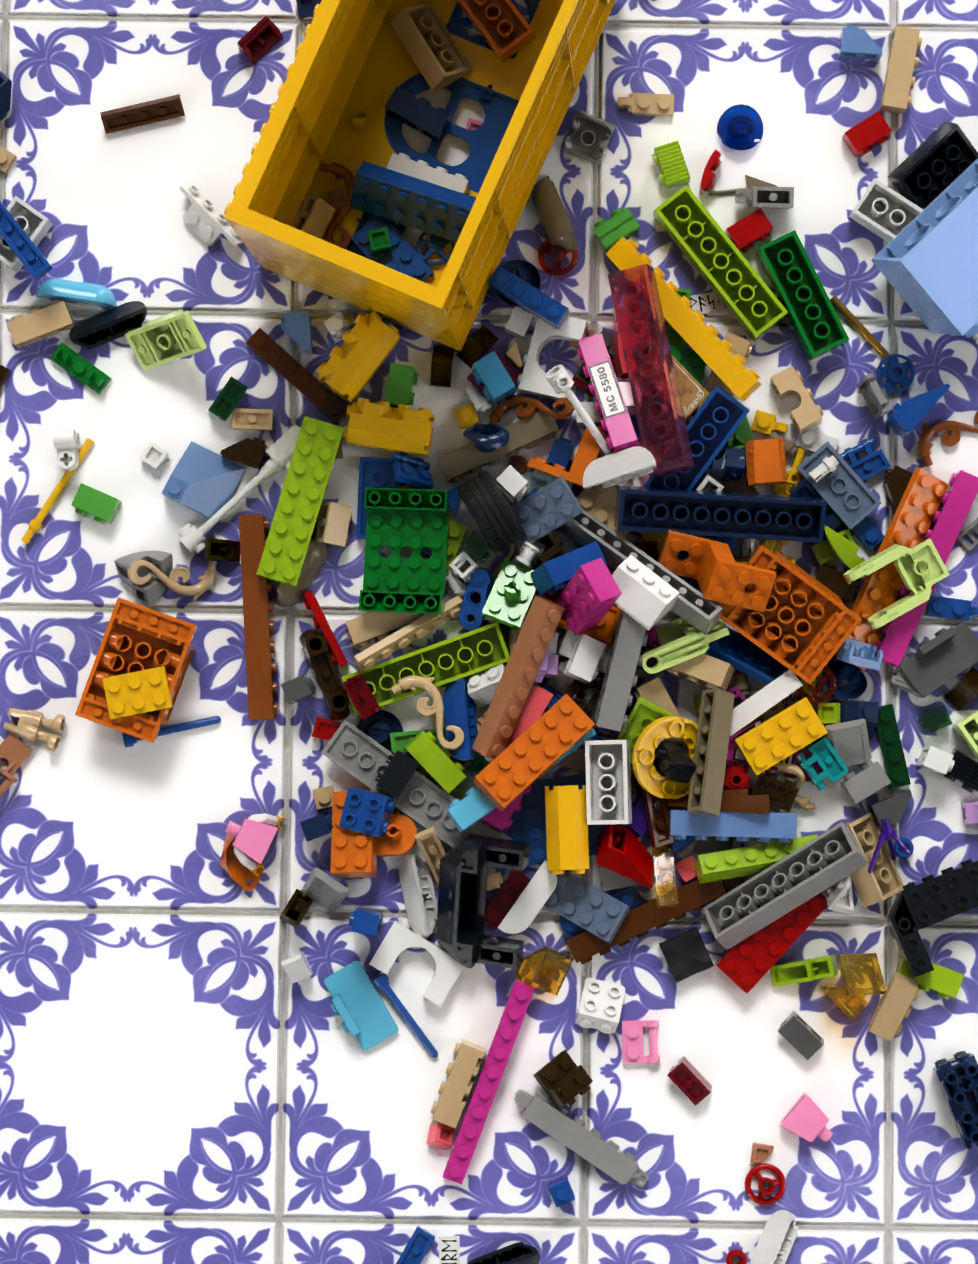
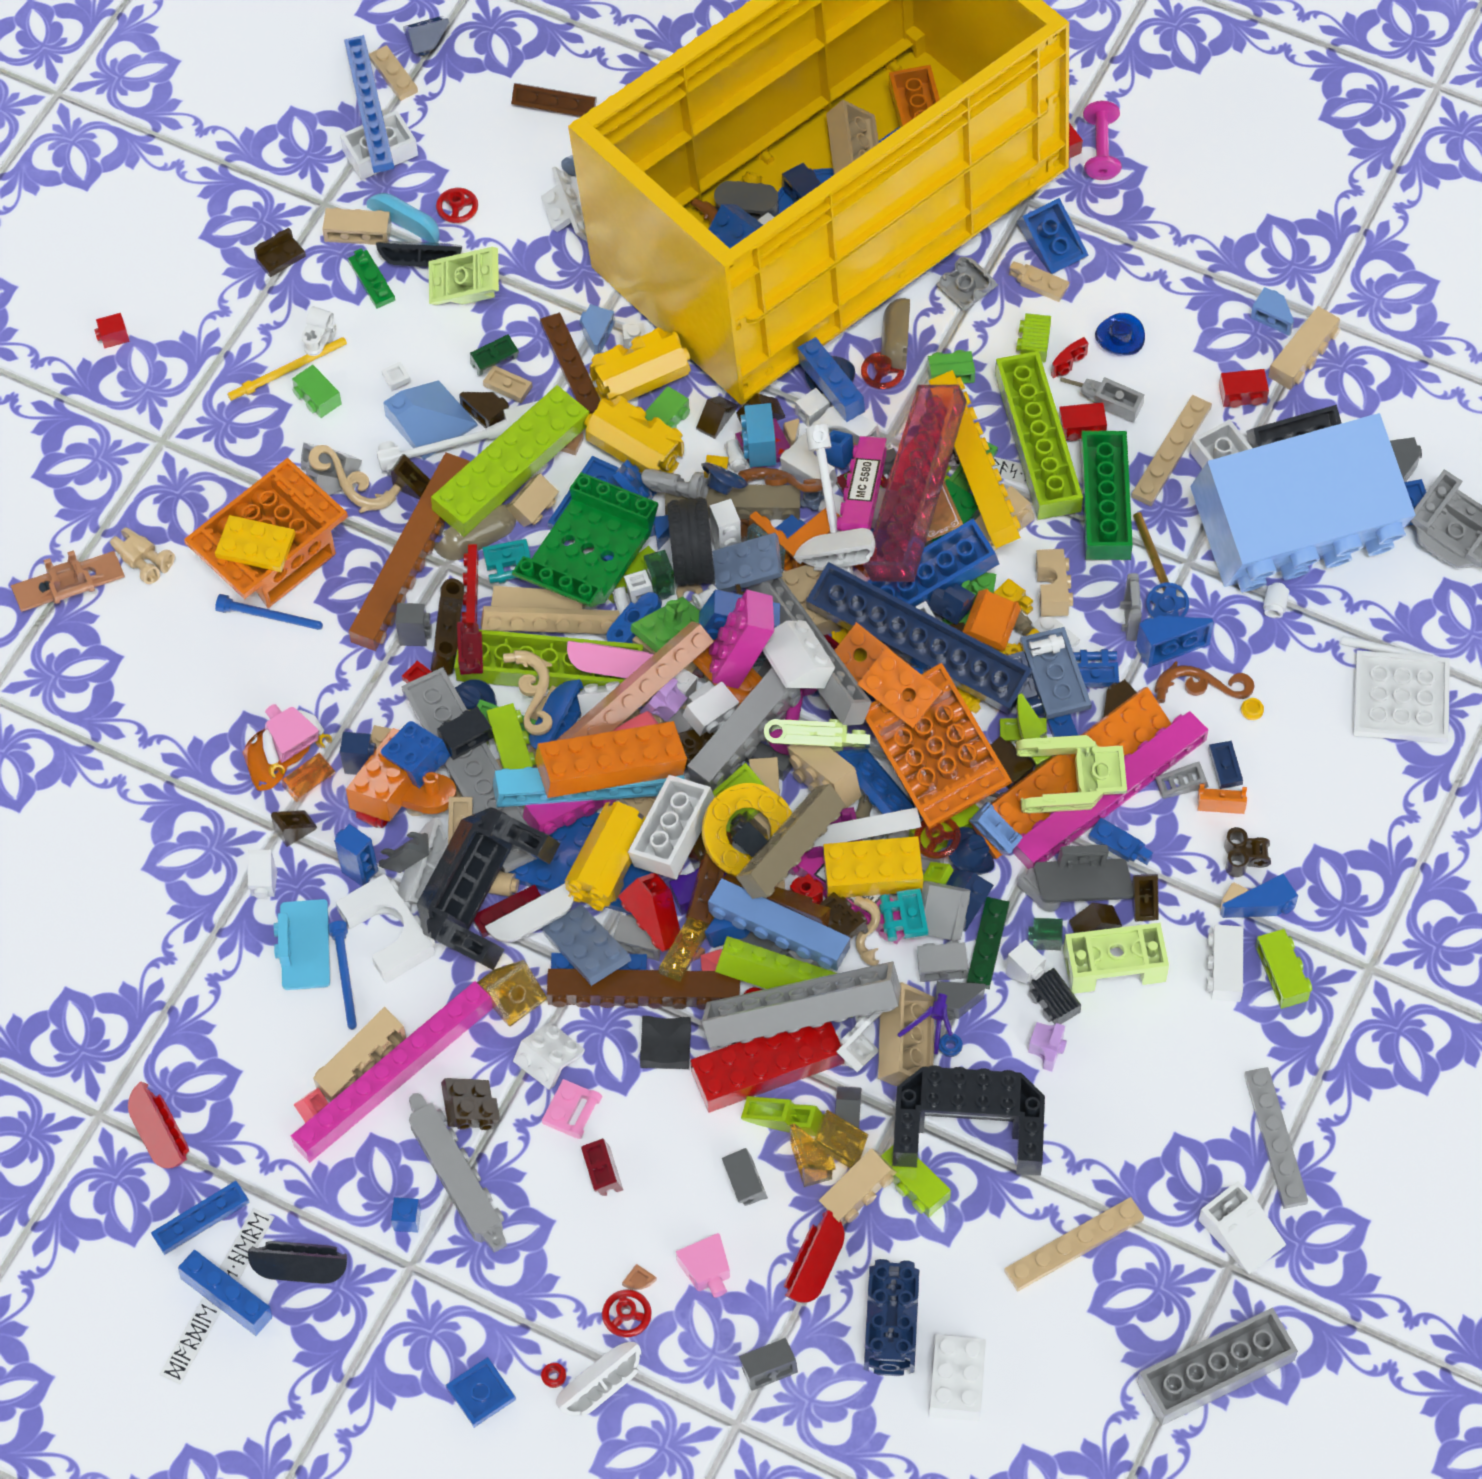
camera: 25 degrees right, 25 degrees down
(113, 252) = (456, 199): none -> red piece
(192, 174) = (568, 165): none -> sand blue plate
(286, 862) = (307, 777): none -> clear orange hinge
(324, 890) = (331, 813): light grey slope -> none
(334, 1214) = (157, 1127): none -> brick
(336, 584) = (503, 556): none -> teal plate
(370, 144) = (751, 197): none -> dark grey brick
(401, 894) = (407, 854): none -> dark grey hinge
(448, 462) = (675, 485): none -> light grey piece
(480, 652) = (606, 659): none -> bright pink brick
(562, 354) = (841, 449): none -> blue brick
(639, 55) = (1052, 236): none -> blue slope
(832, 221) = (1171, 450): none -> tan plate
(850, 936) = (849, 1104): none -> dark grey slope
(886, 1078) = (815, 1259): none -> red brick
(891, 1174) = (768, 1364): none -> dark grey hinge

